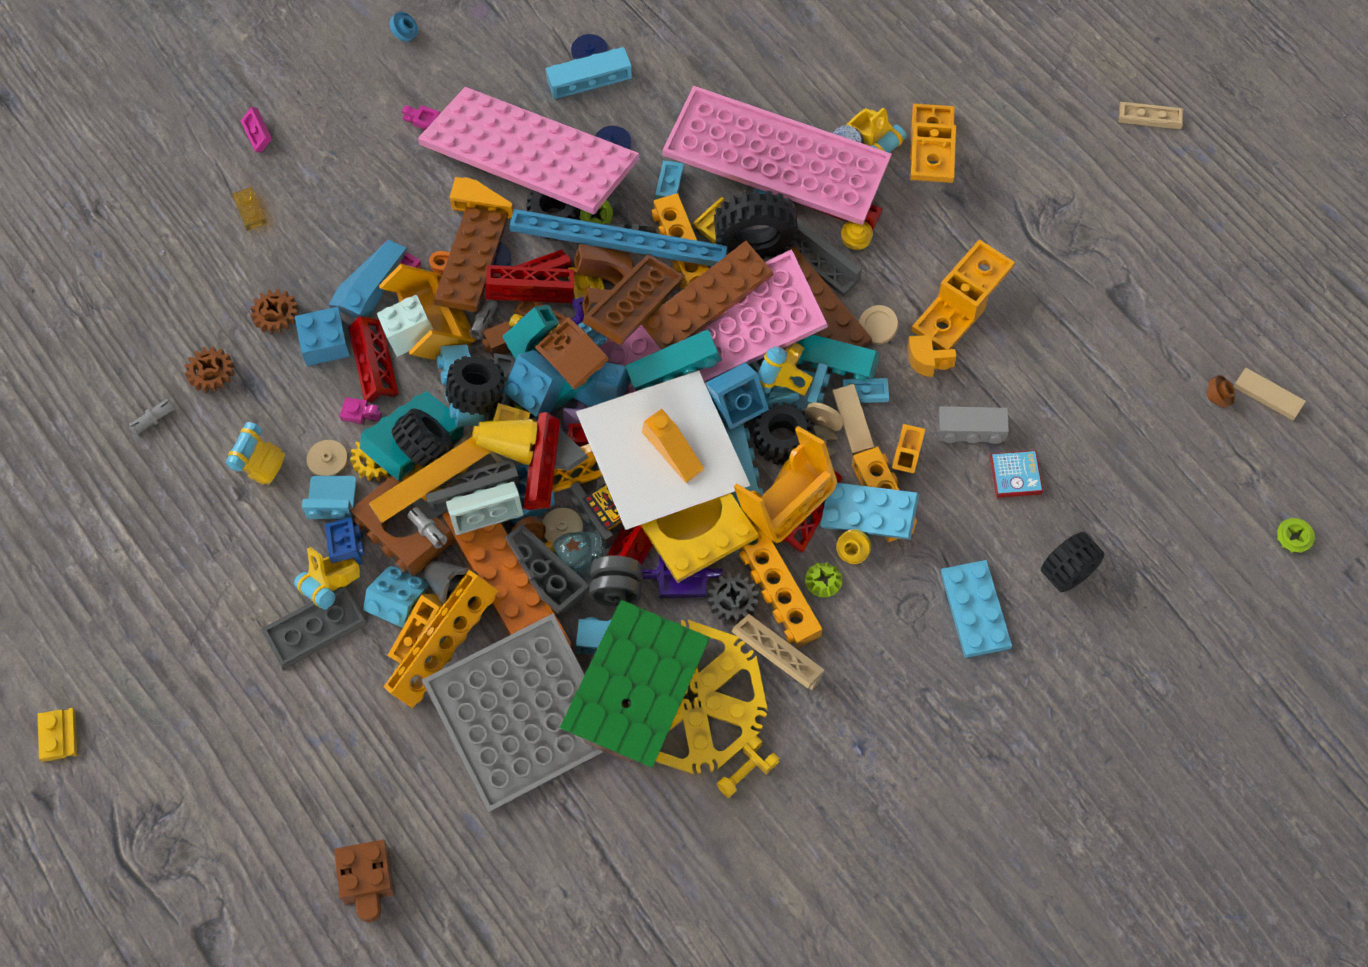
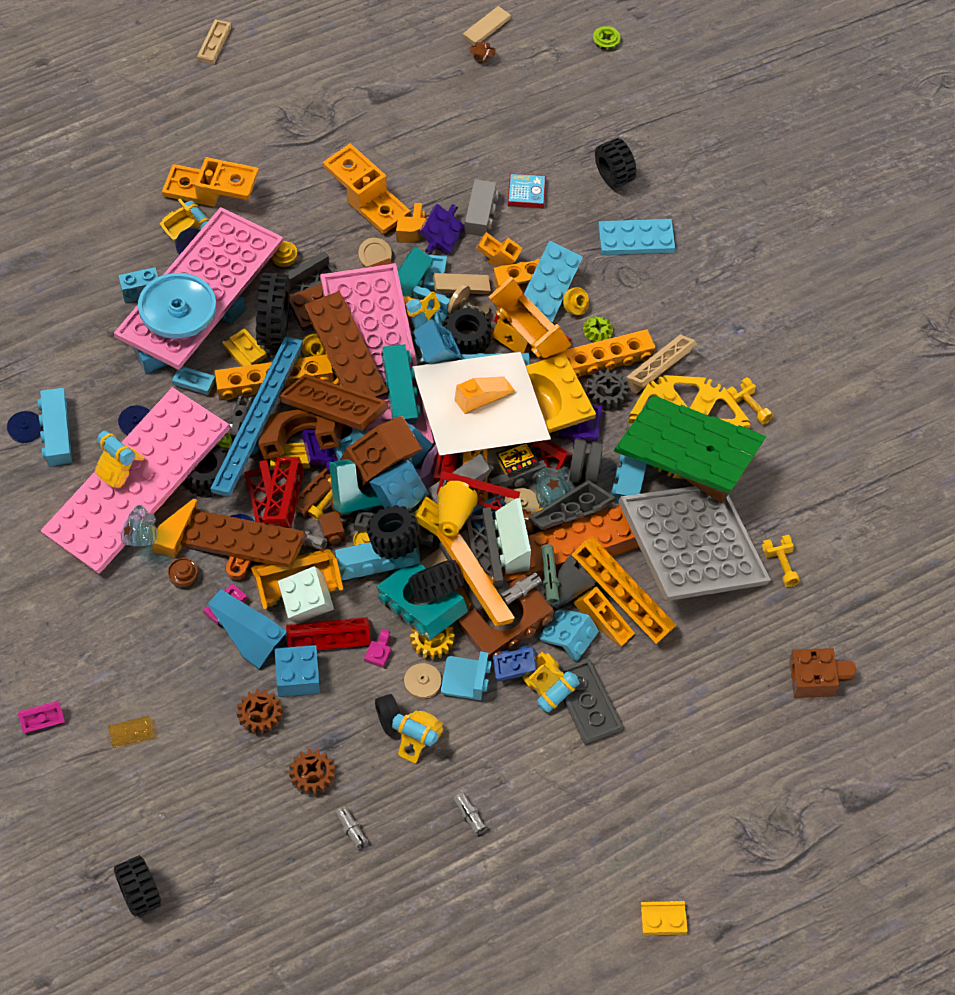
camera: 85 degrees left, 5 degrees down
(70, 236) = (137, 886): none -> black tyre
(171, 525) = (470, 813): none -> light grey pin
(276, 425) = (387, 710): none -> black tyre
(421, 118) = (66, 568): dark pink plate -> none
(430, 215) = (182, 572): none -> dark orange plate
(446, 555) = (551, 594): none -> sand green pin
(457, 158) = (139, 528): none -> clear light blue piece
(531, 115) = (115, 460): none -> yellow piece
(537, 806) = (790, 578): none -> yellow bar
(731, 129) = (177, 305): none -> medium azure dish
(778, 101) = (135, 282): none -> medium azure brick
(926, 385) = (441, 229): none -> dark purple plate

